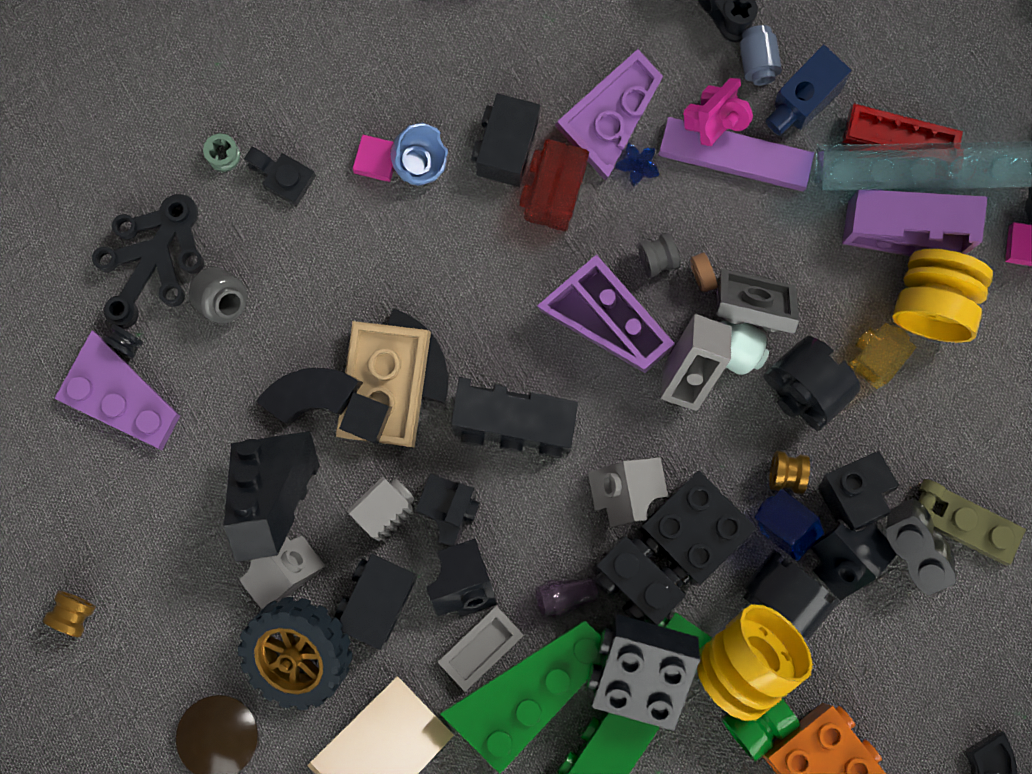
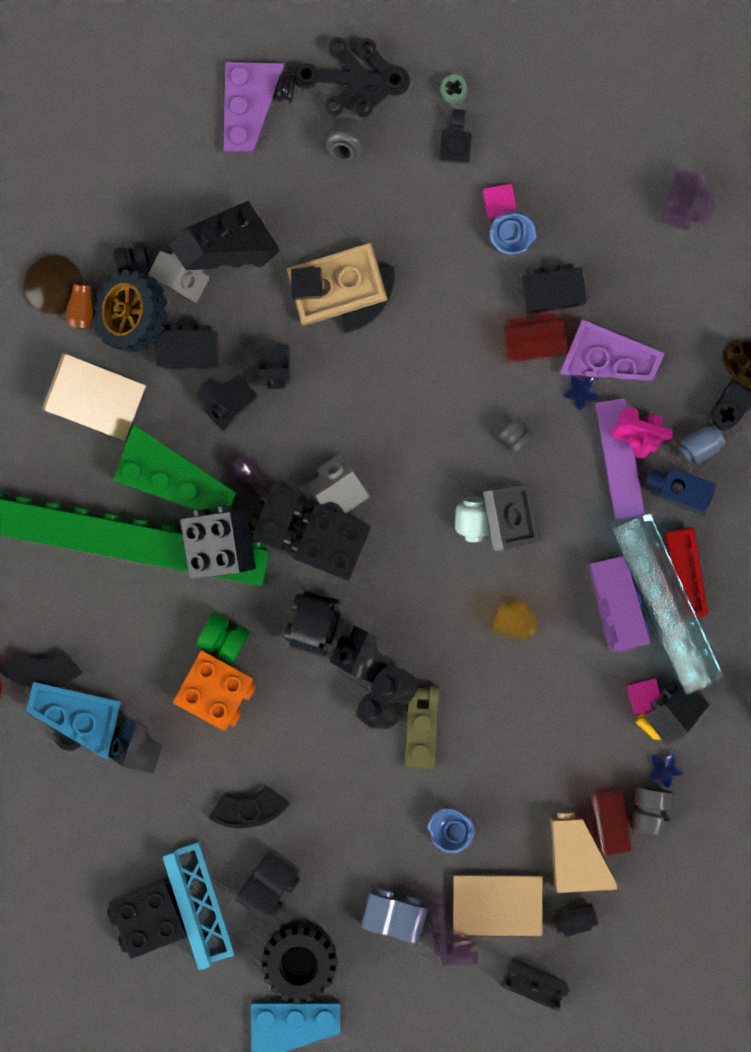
camera: 75 degrees right, 10 degrees up
(69, 614) = (87, 147): pearl gold wheel -> none
(227, 630) = (125, 260): none -> black wheel
(259, 715) = (79, 308): none -> dark orange cone
(309, 390) = (309, 235): black tile -> none
(383, 508) = (249, 324): light grey brick -> none
(480, 648) = (188, 433): light grey tile -> none
(513, 419) = (351, 385): black wedge -> none
(608, 315) = (453, 418): medium lavender wedge -> none
(696, 362) = (445, 492): light grey brick -> none
(703, 272) = (517, 472): medium nougat tile -> none
(754, 662) = (255, 611): yellow wheel -> none
(789, 472) = (400, 590): pearl gold wheel -> none
(789, 524) = (363, 603): clear blue brick -> none
(812, 382) = (467, 578): black brick -> none
(857, 491) = (407, 640): black brick -> none
(943, 295) = (572, 645): yellow wheel -> none

